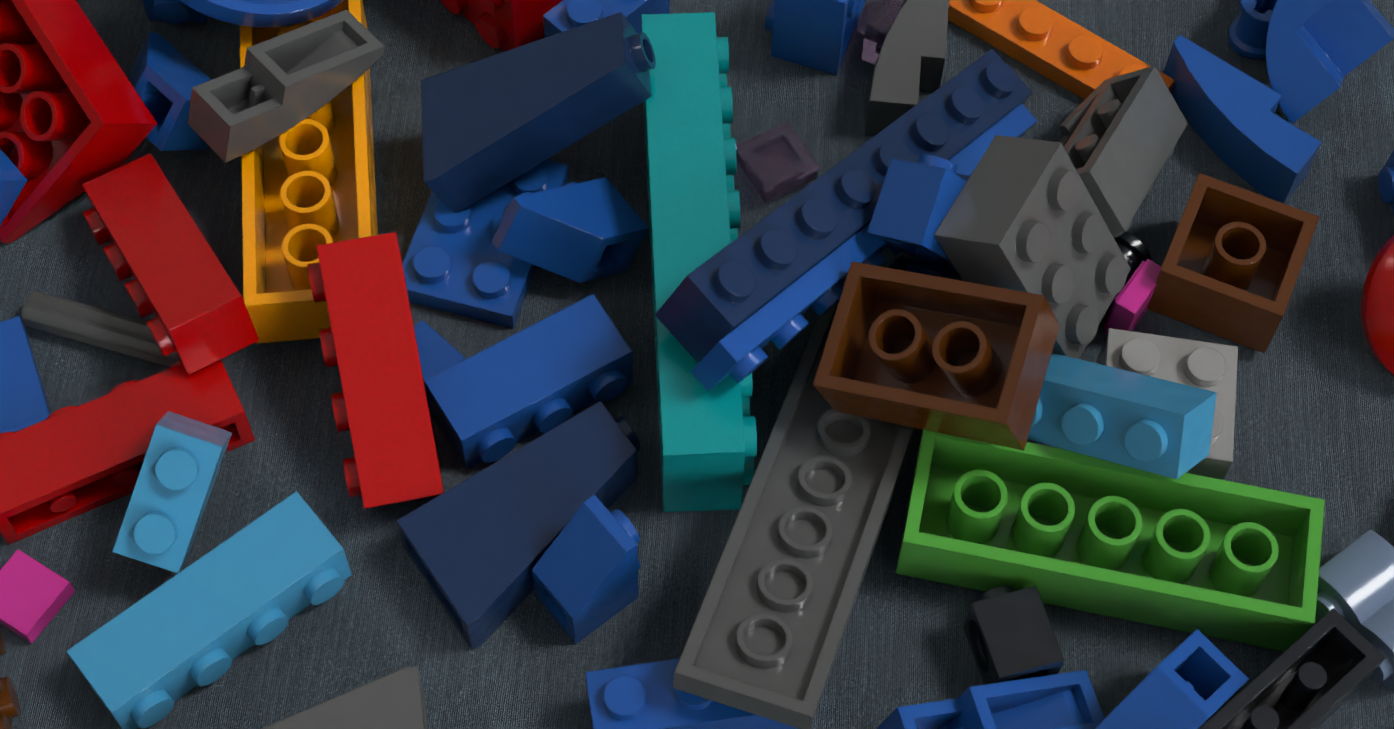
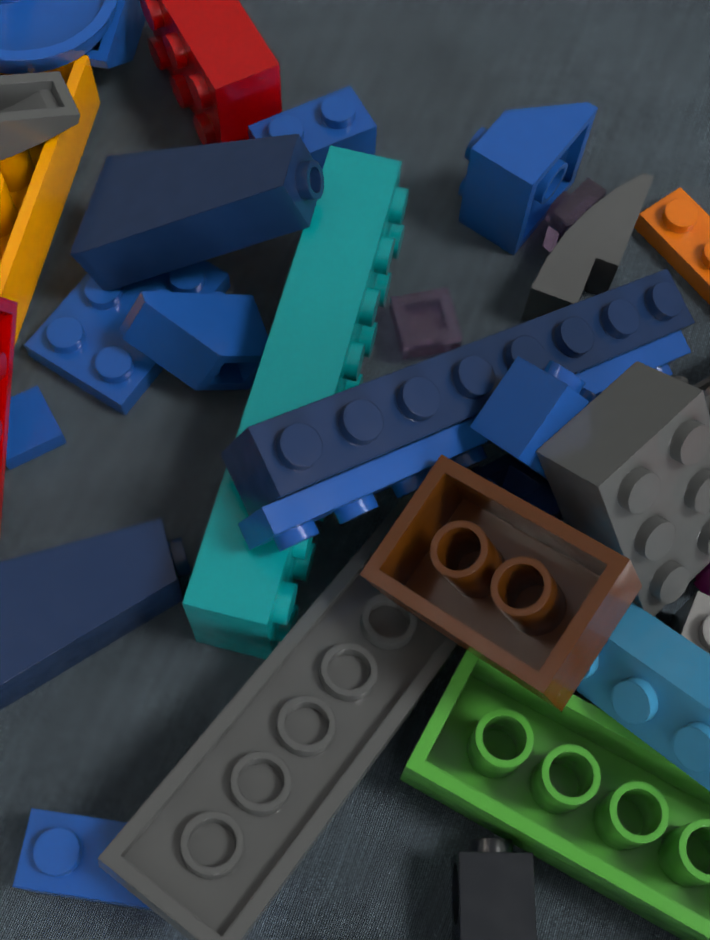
camera: 15 degrees right, 5 degrees up
(530, 382) = (108, 476): blue brick -> none
(589, 569) = (86, 692): blue slope -> none

